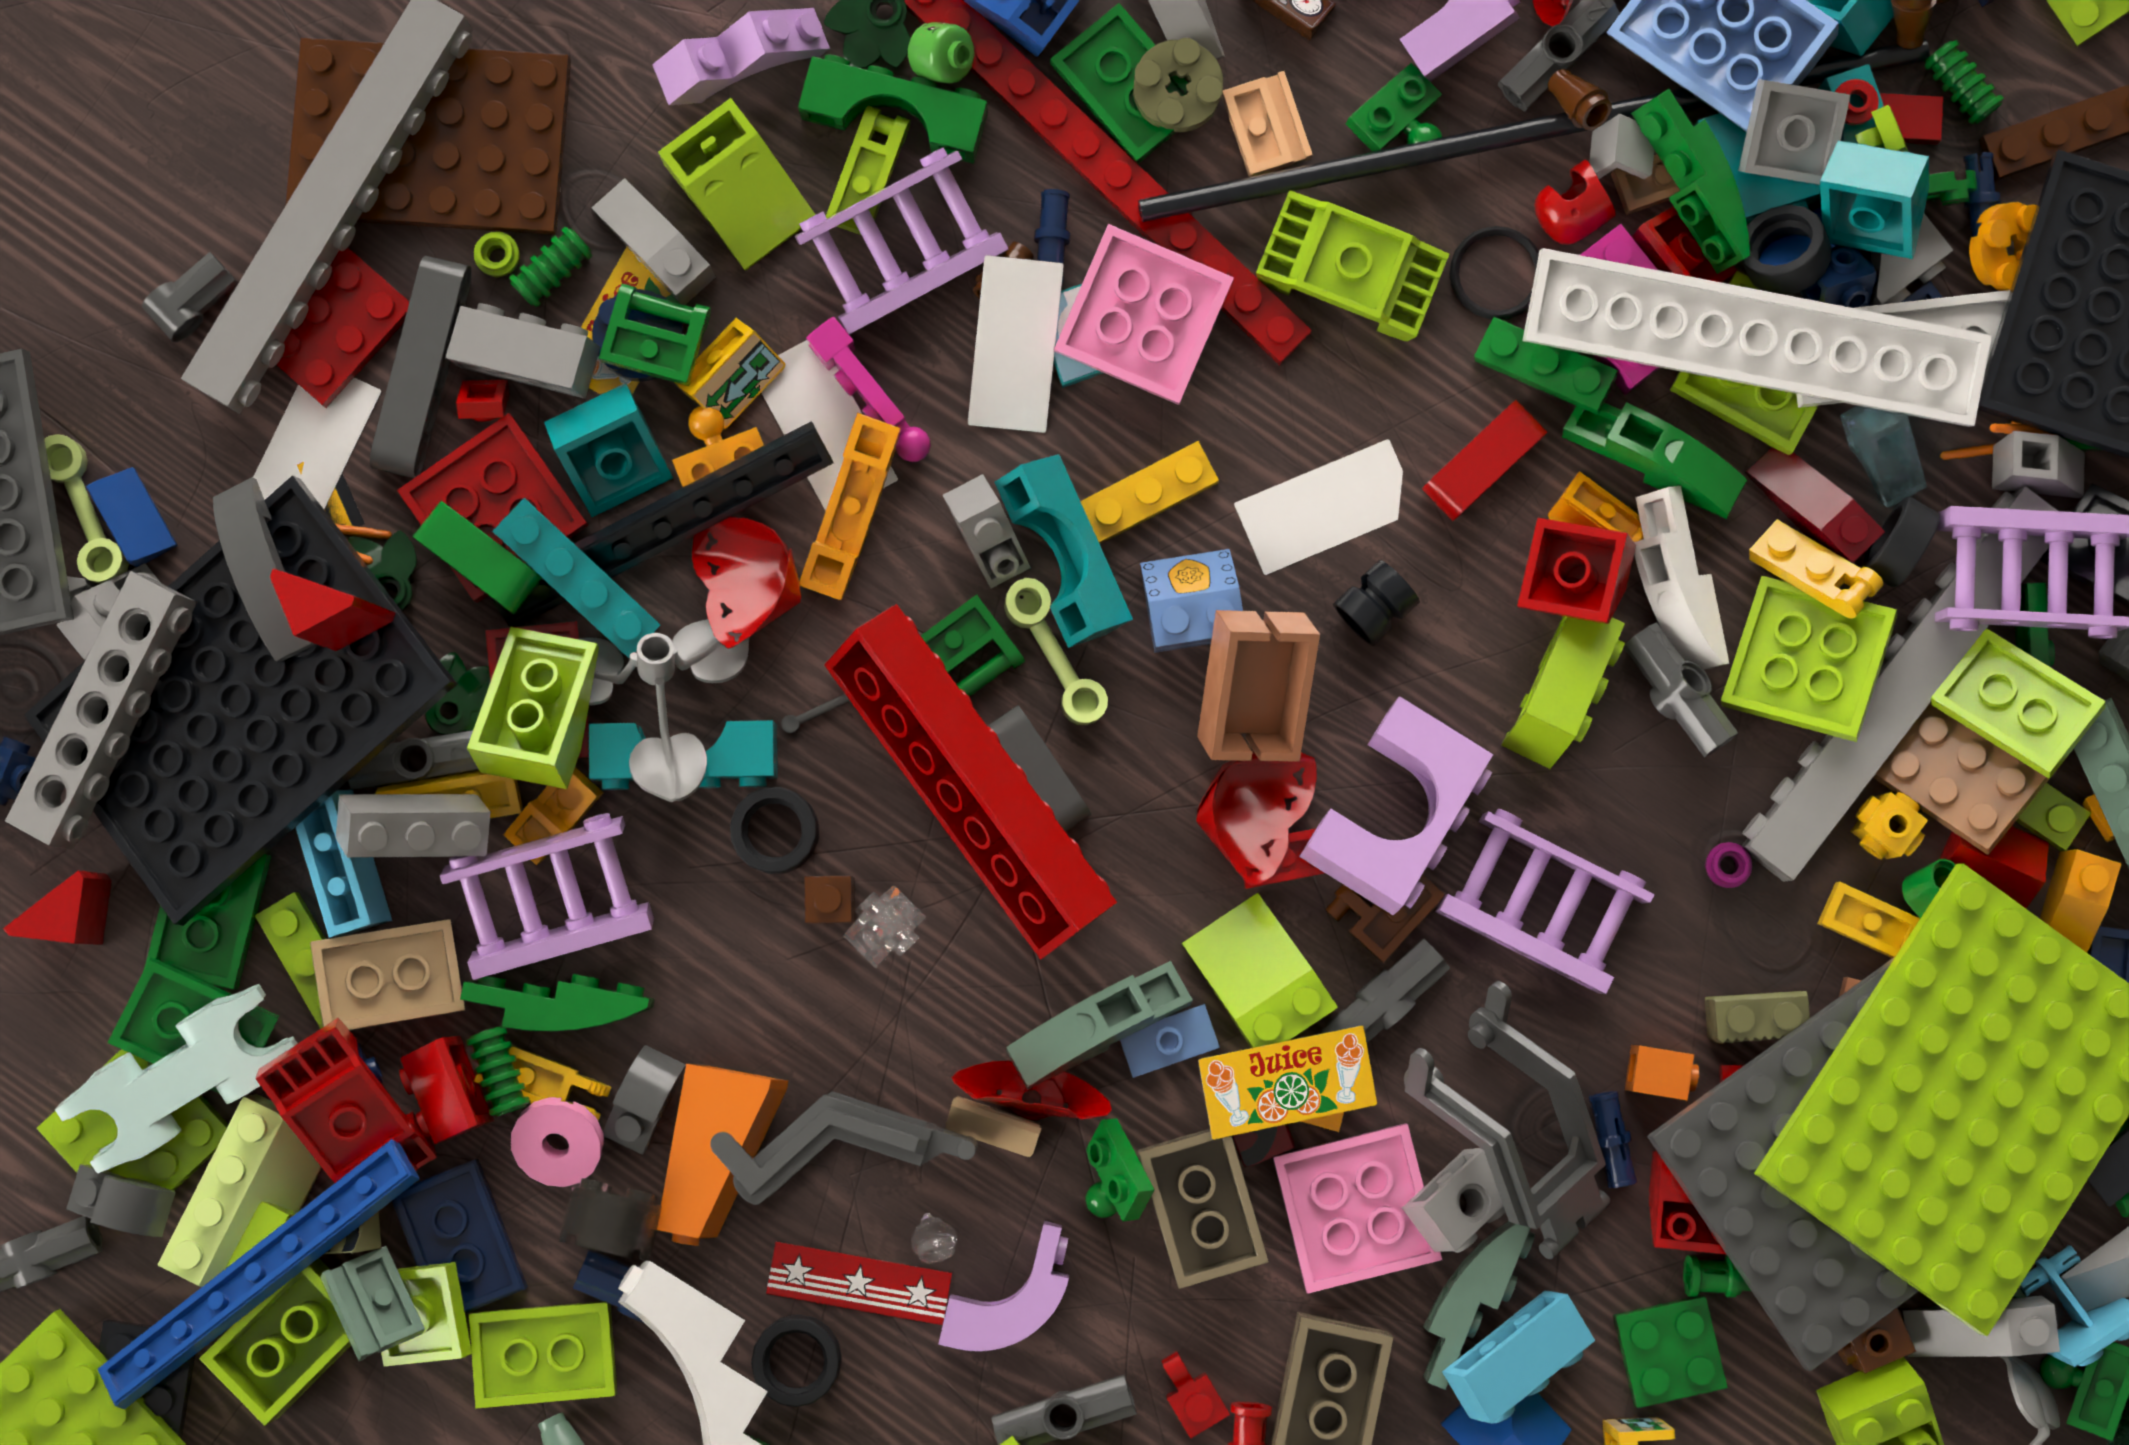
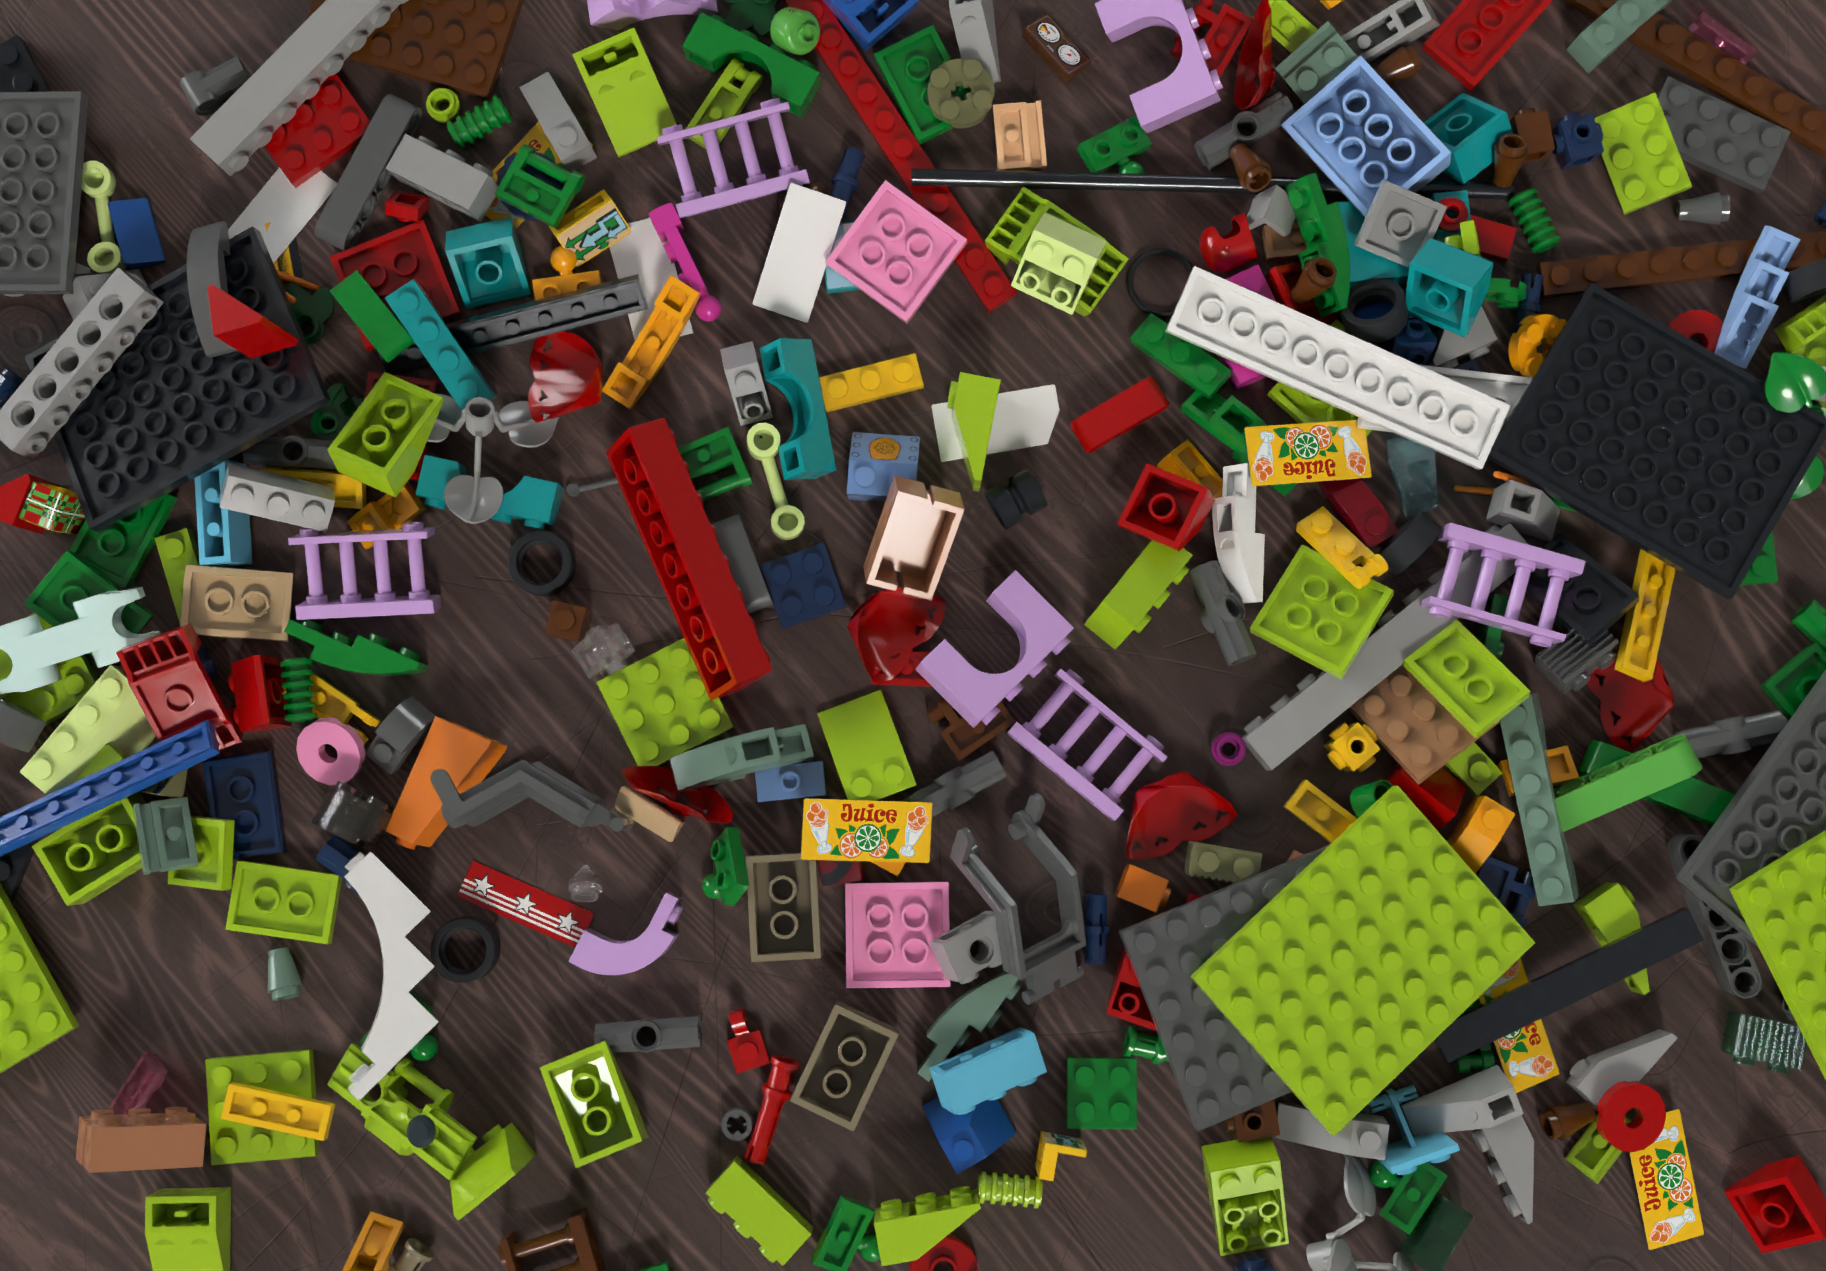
camera: 15 degrees right, 0 degrees up
(118, 907) = (53, 508): none -> piece
(978, 980) = (663, 706): none -> lime plate
(1124, 780) = (803, 586): none -> dark blue plate
(1298, 512) = (973, 413): none -> lime slope
(1362, 283) = (1058, 263): none -> yellowish green slope
(1674, 963) = (1171, 811): none -> red piece
(1701, 229) = (1315, 278): none -> reddish brown cone
(1742, 455) = (1307, 452): none -> sticker

